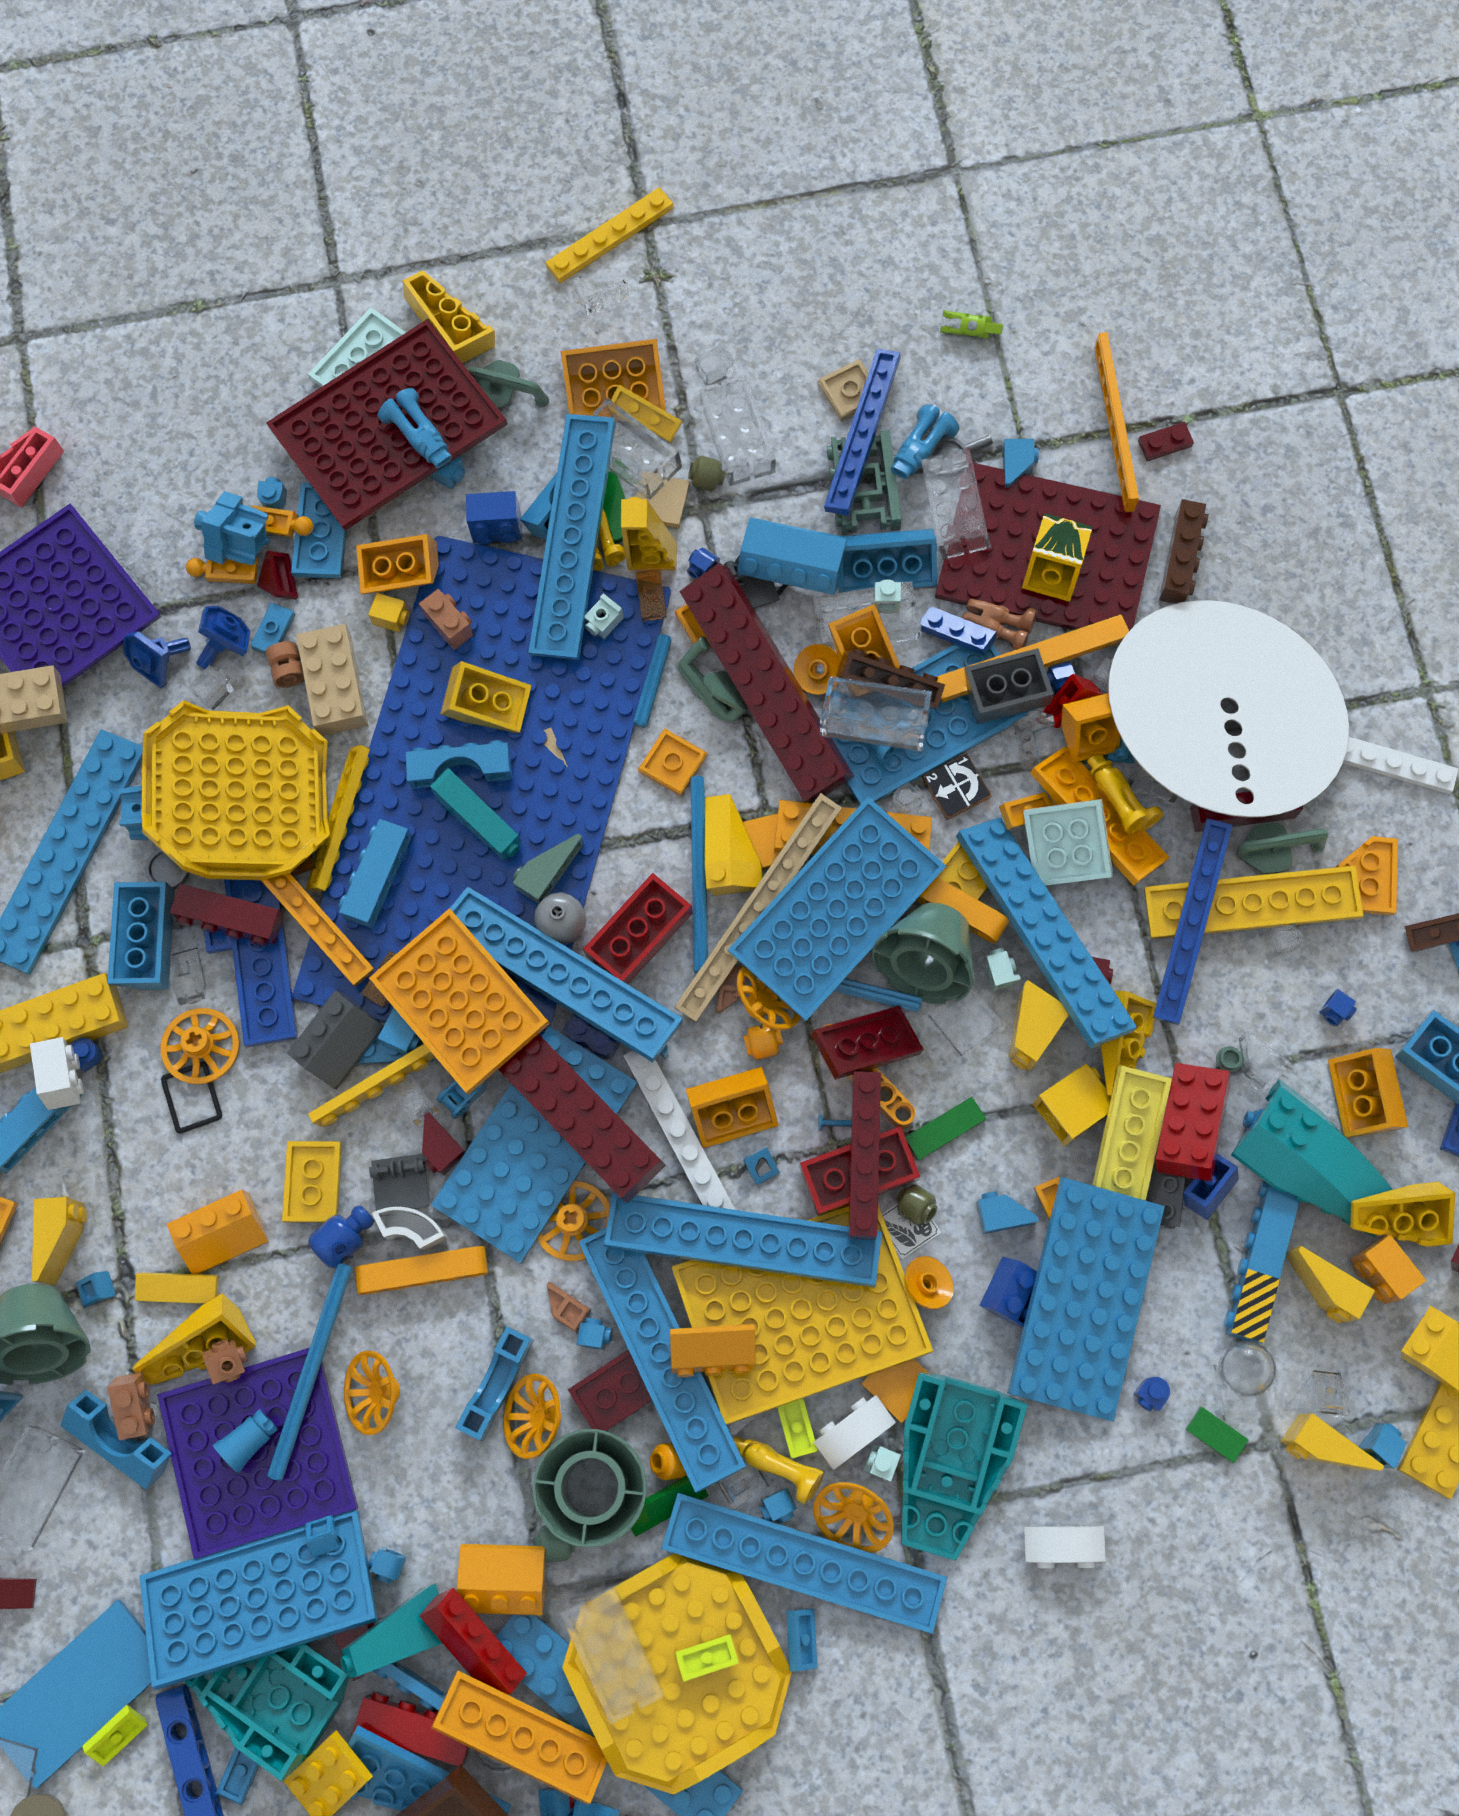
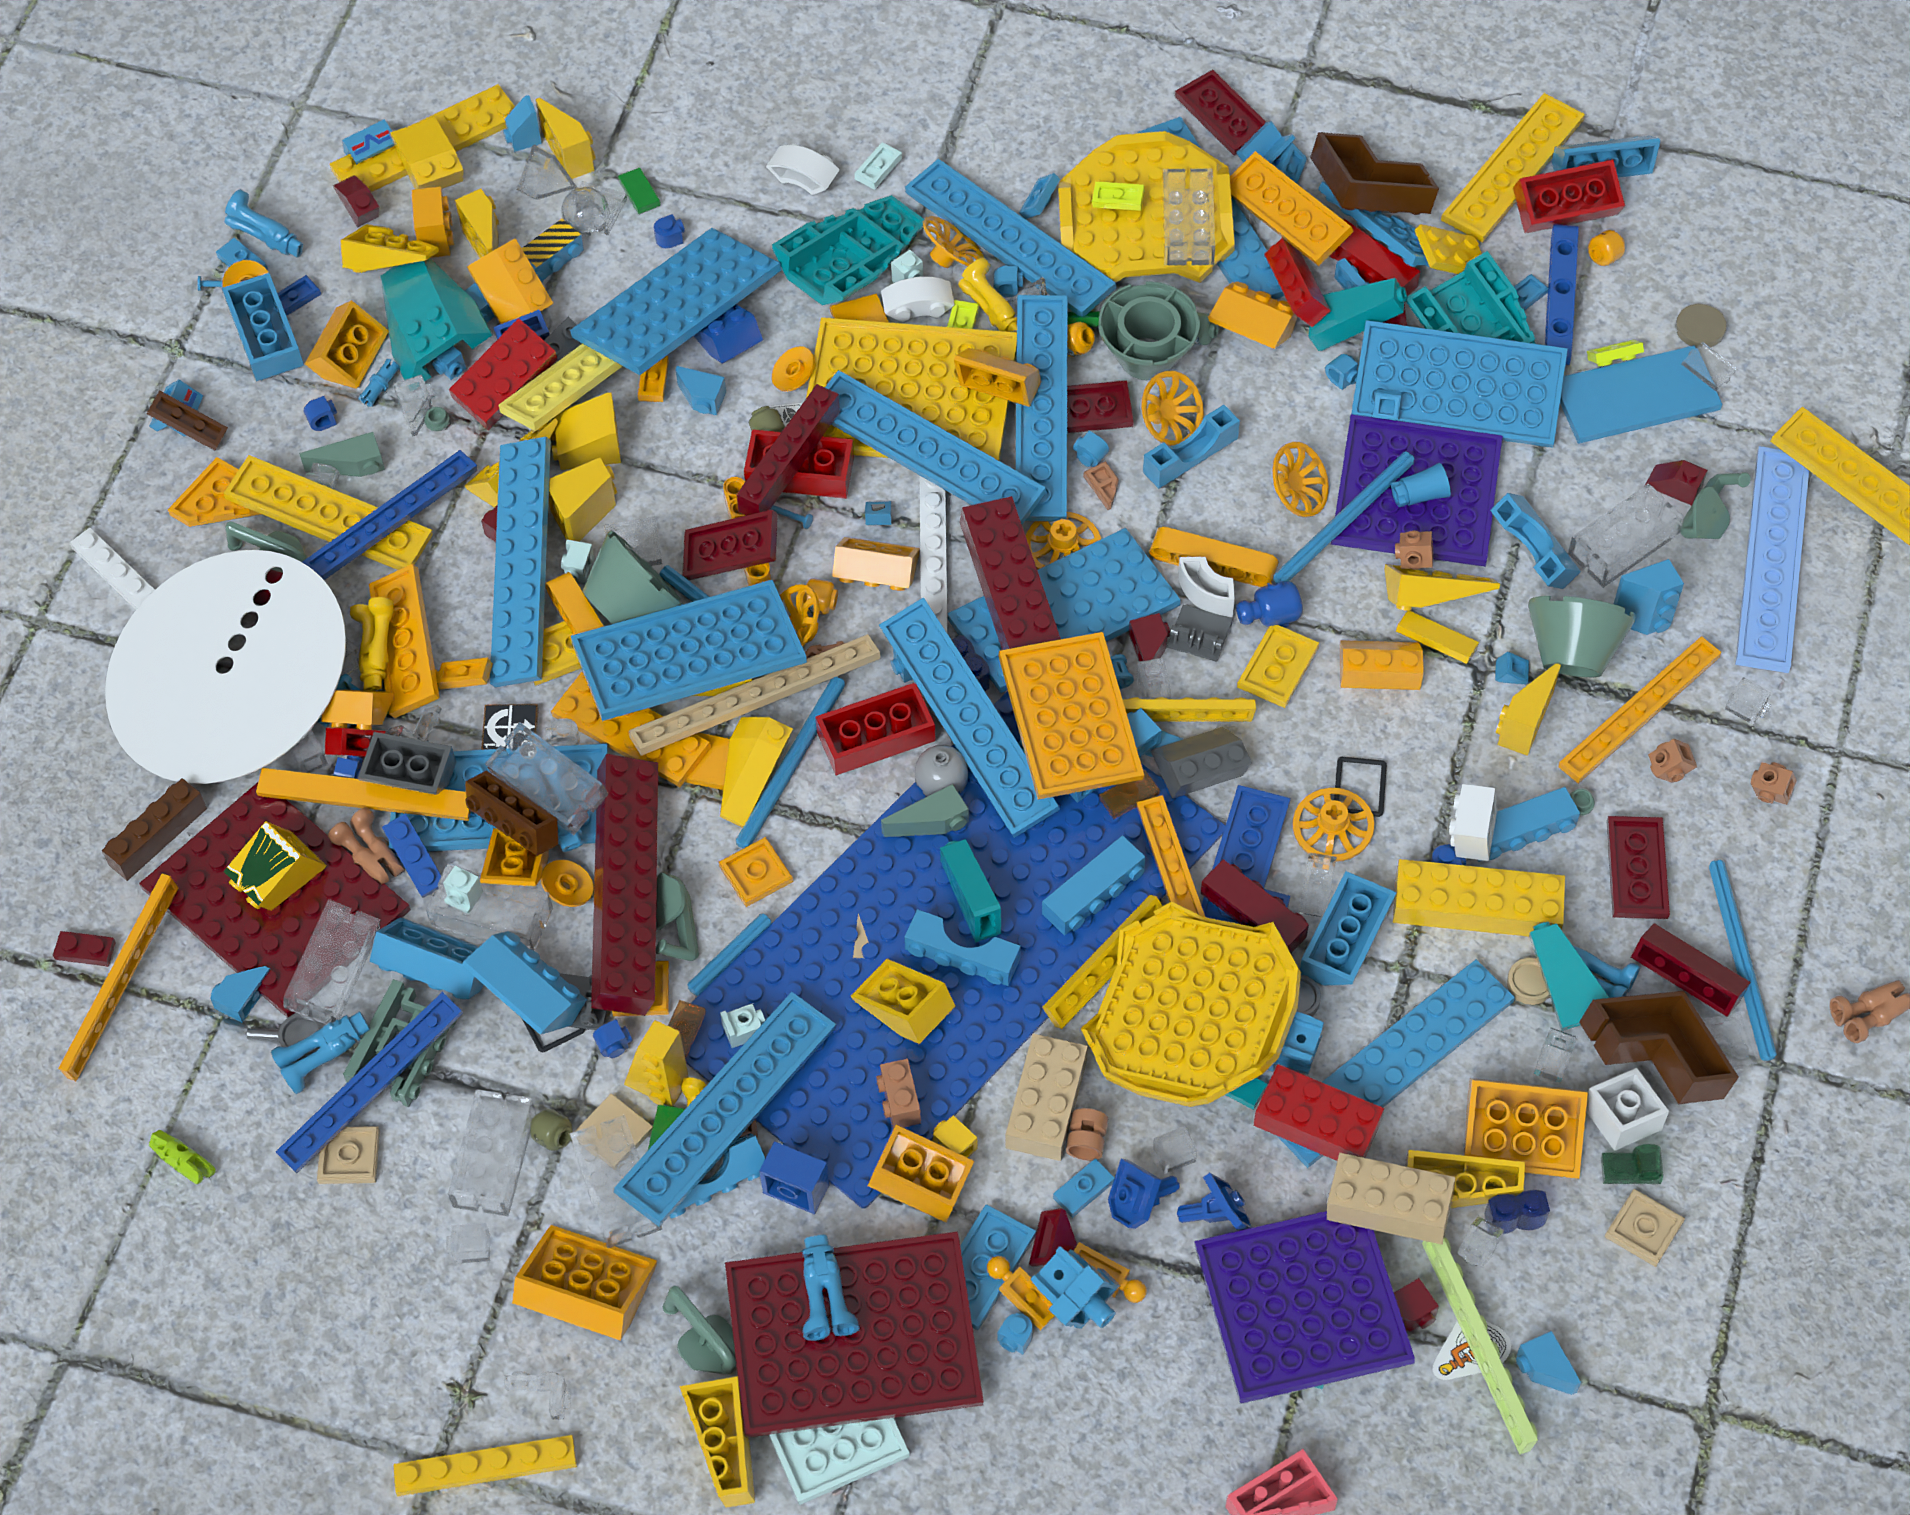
camera: 155 degrees left, 15 degrees down
(93, 755) = (1317, 1115): none -> red brick
(131, 1405) = (1510, 556): nougat brick -> none
(648, 414) = (574, 1224): yellow tile -> none
(945, 1128) = (704, 472): green tile -> none
(991, 1595) = (878, 165): none -> light aqua plate
(1068, 842) = (448, 620): light aqua plate -> none
(1255, 1225) = (509, 283): none -> light orange slope
(1275, 975) = (350, 457): none -> sand green slope
(1310, 1070) = (379, 382): none -> dark azure pin

